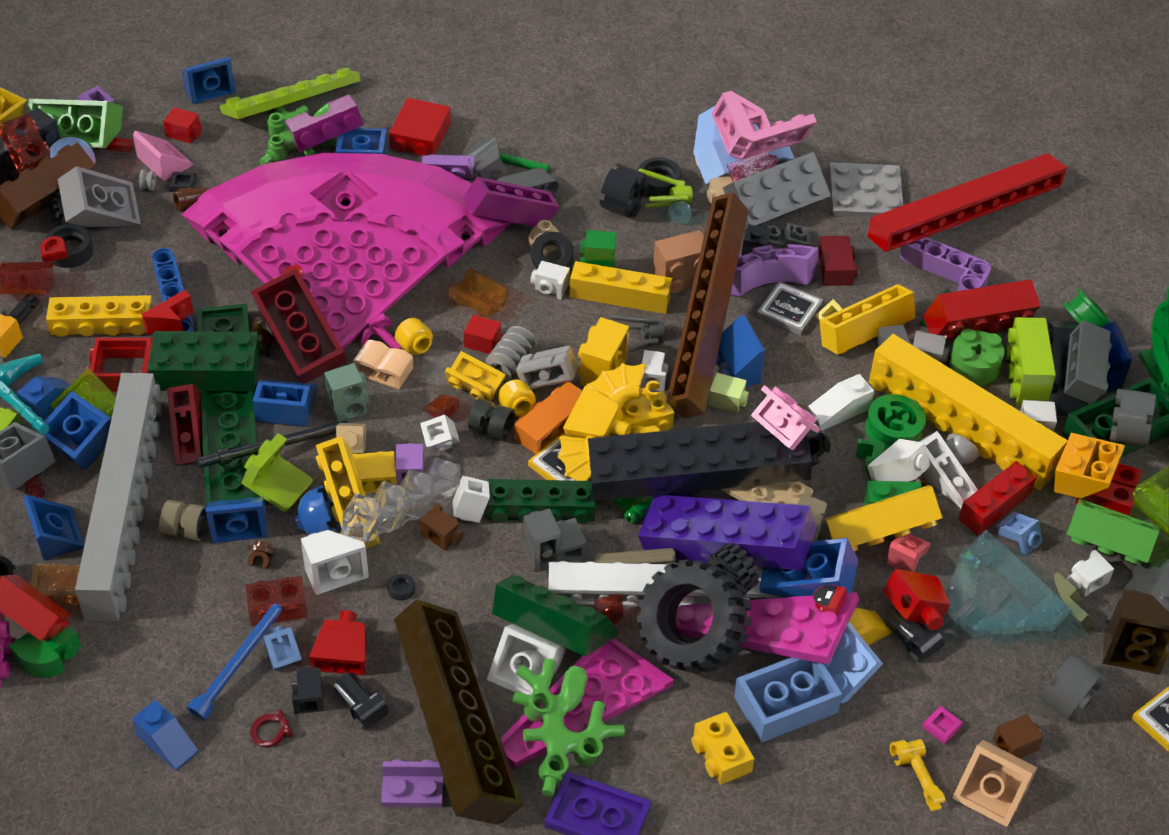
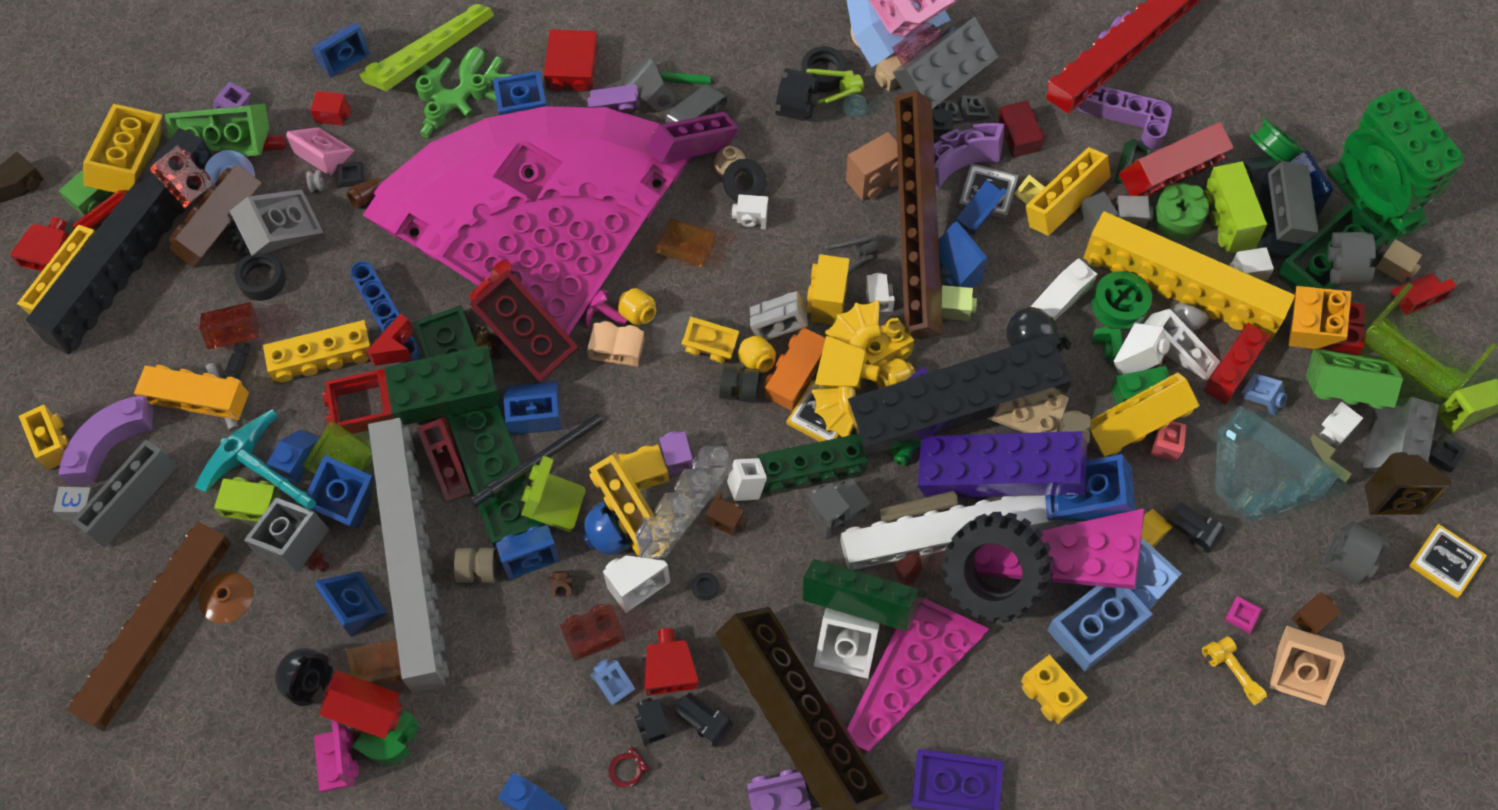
camera: 10 degrees left, 15 degrees up
(53, 249) = (248, 287): red tile -> none
(204, 703) = (556, 759): blue piece -> none
(310, 131) = (467, 92): magenta arch -> none
(347, 392) = (593, 388): sand green brick -> none
(354, 434) = (611, 436): tan brick -> none
(440, 436) = (695, 413): white brick -> none
(443, 405) = (686, 378): clear red slope -> none
(482, 334) = (704, 289): red brick -> none
(510, 349) = (736, 303): light grey piece -> none
(552, 708) = (897, 716): bright green plant -> none
(599, 248) = (793, 177): green brick -> none
(620, 287) = (822, 206): yellow brick -> none
(737, 563) = (1024, 504): black tyre -> none
(778, 317) = (981, 207): none -> blue panel
(784, 417) = (1037, 344): bright pink bracket -> none
(829, 598) = (1120, 521): tile -> none
(864, 189) = (1026, 39): light grey plate -> none
(918, 597) = (1194, 492): red torso -> none

